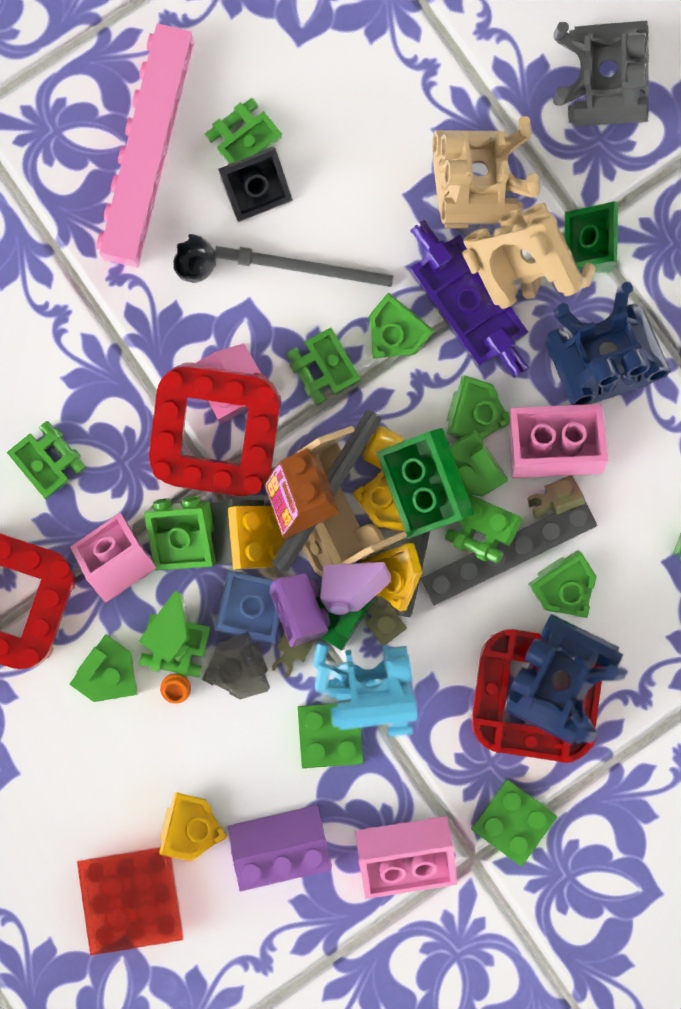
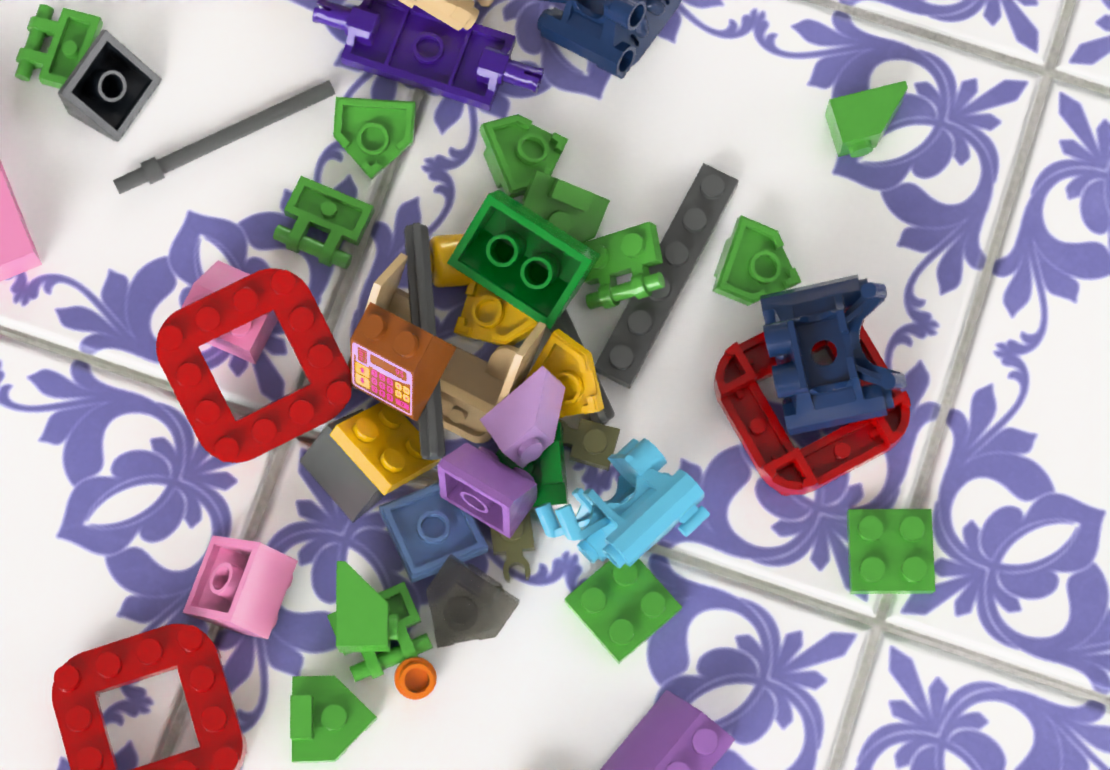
camera: 35 degrees left, 10 degrees down
(39, 466) = (85, 548): bright green plate -> none
(180, 533) = (297, 504): bright green plate -> none
(194, 259) = (99, 208): black hair -> none
(406, 857) = (805, 672): bright pink slope -> none
(557, 441) = (630, 122): bright pink slope -> none
(560, 495) = (674, 178): olive plate -> none

